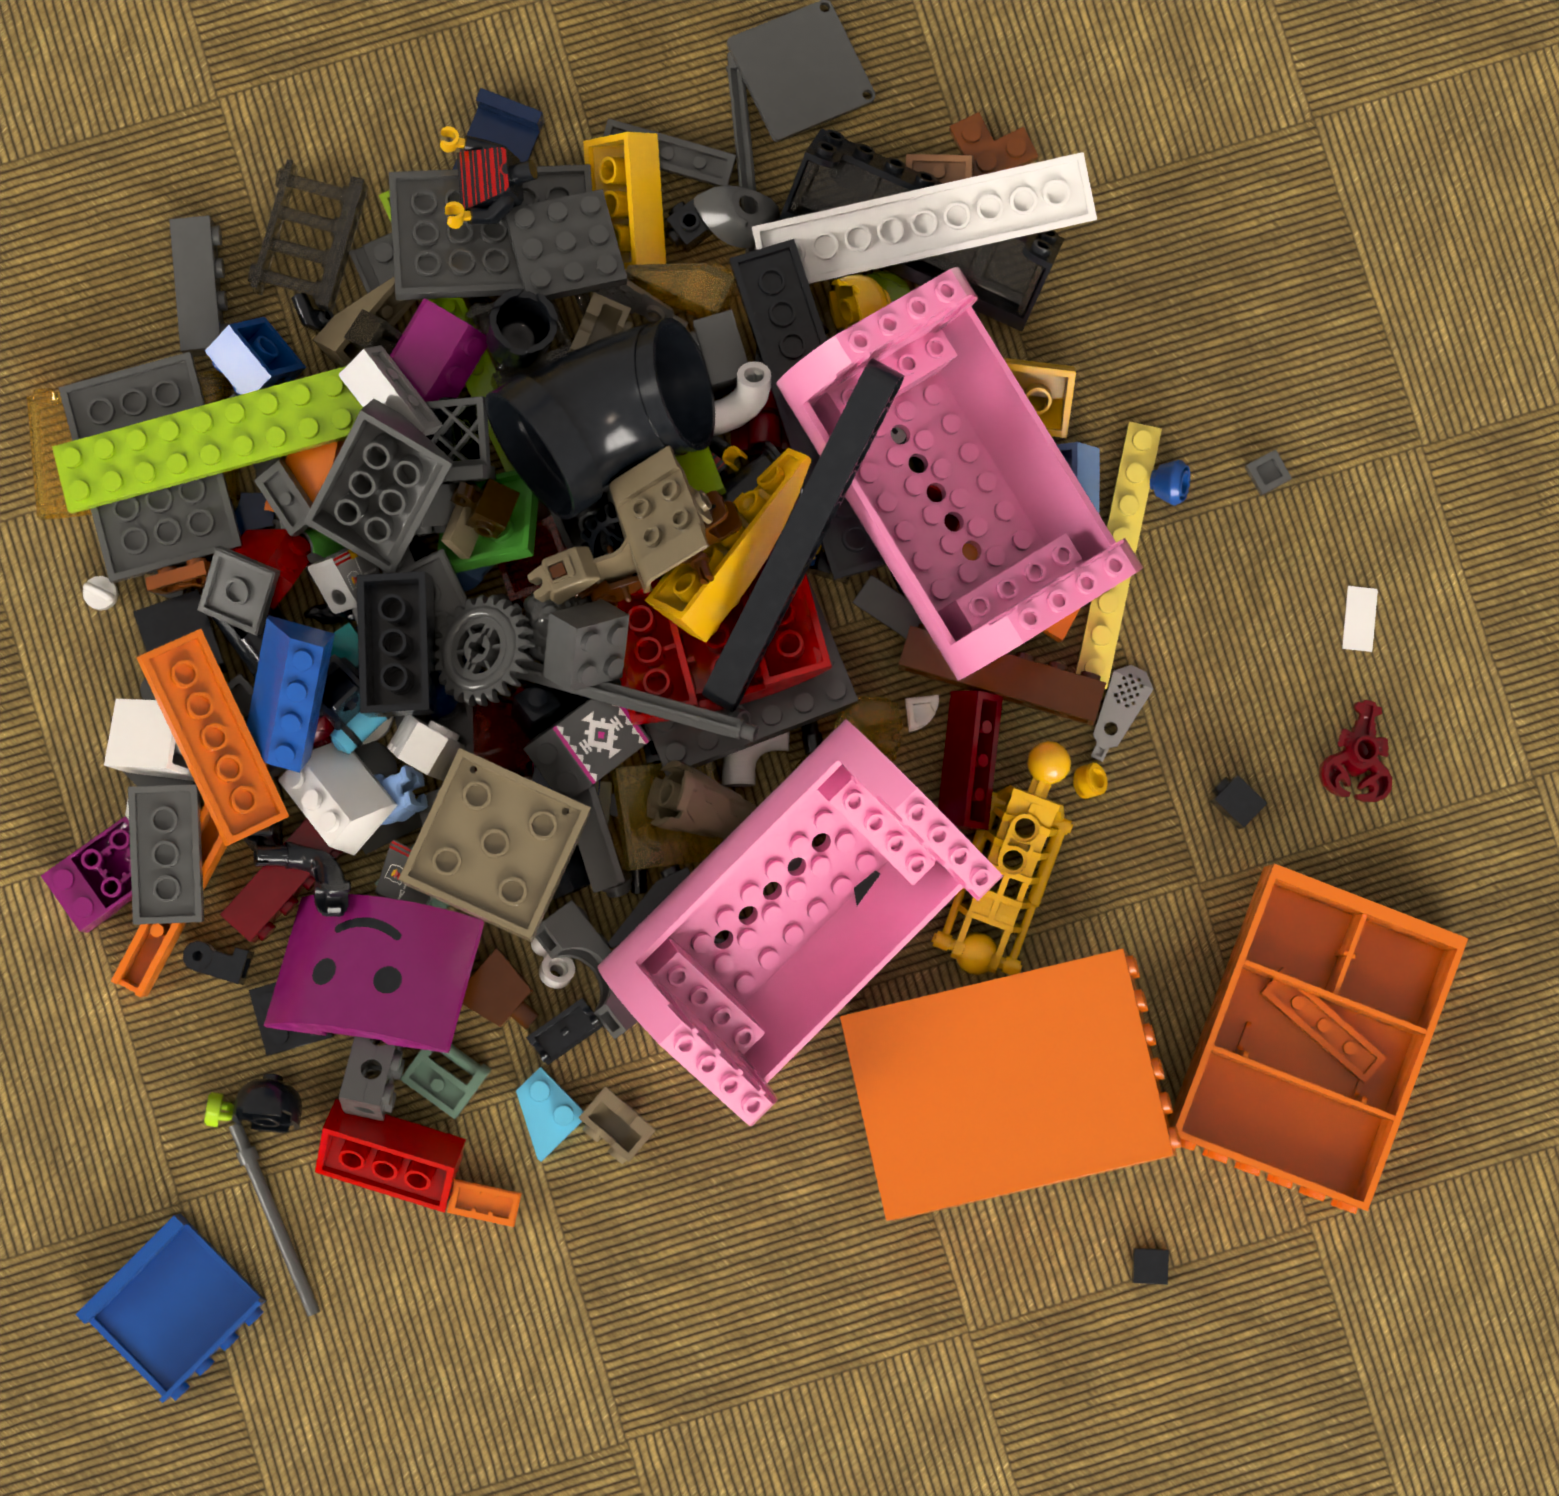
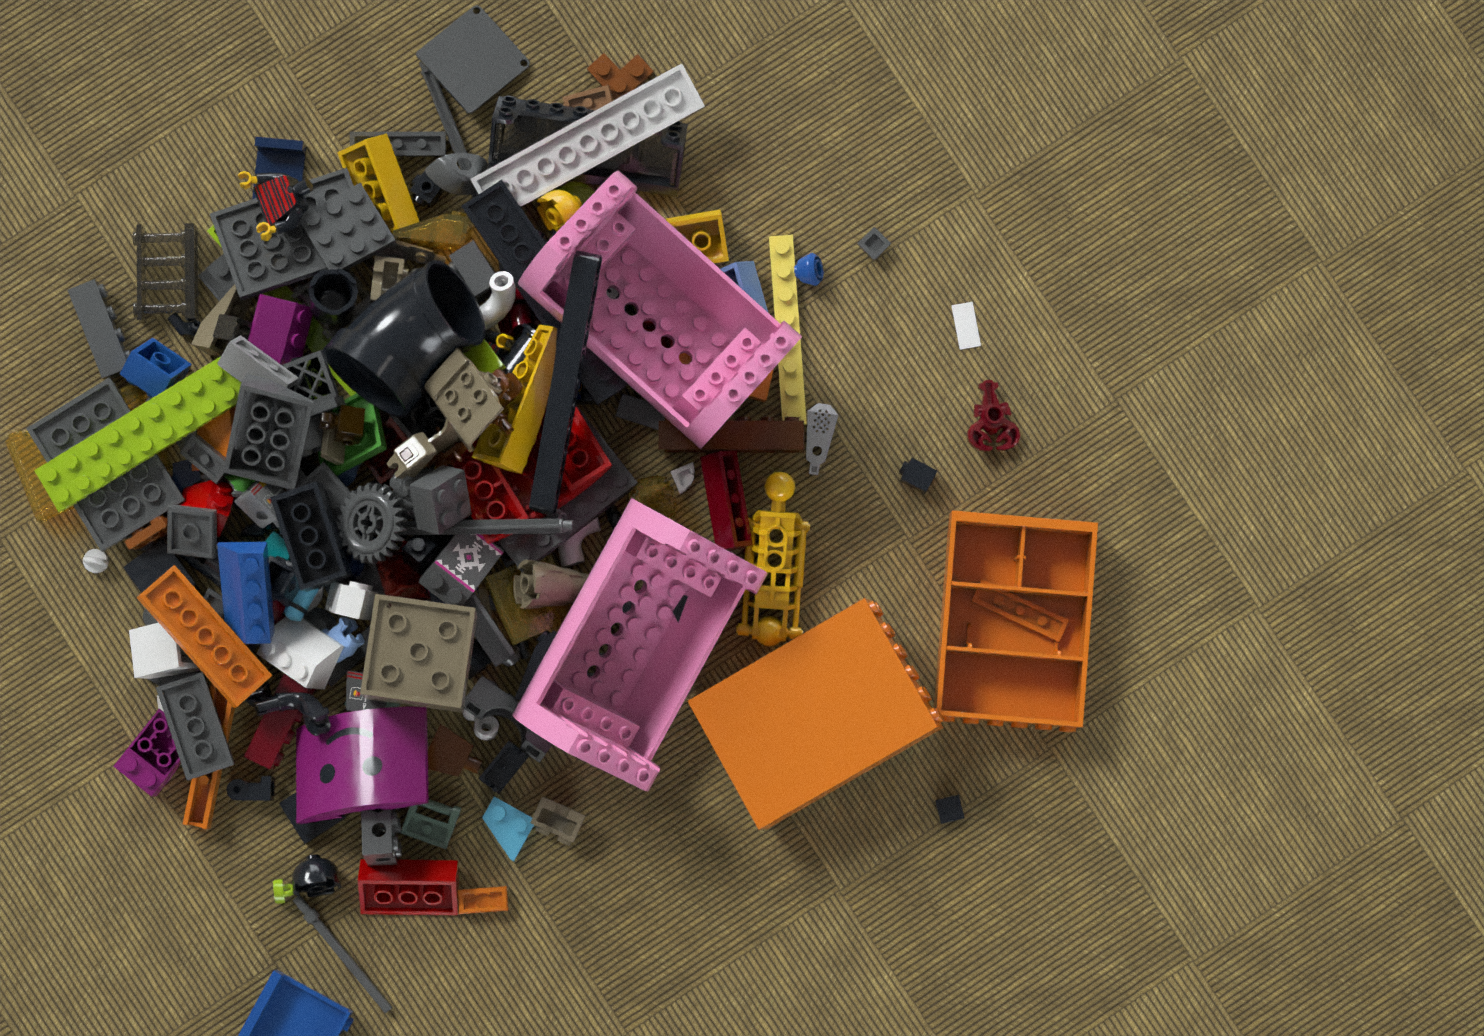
camera: 15 degrees left, 0 degrees up
(1090, 780) = (813, 490): yellow tile -> none

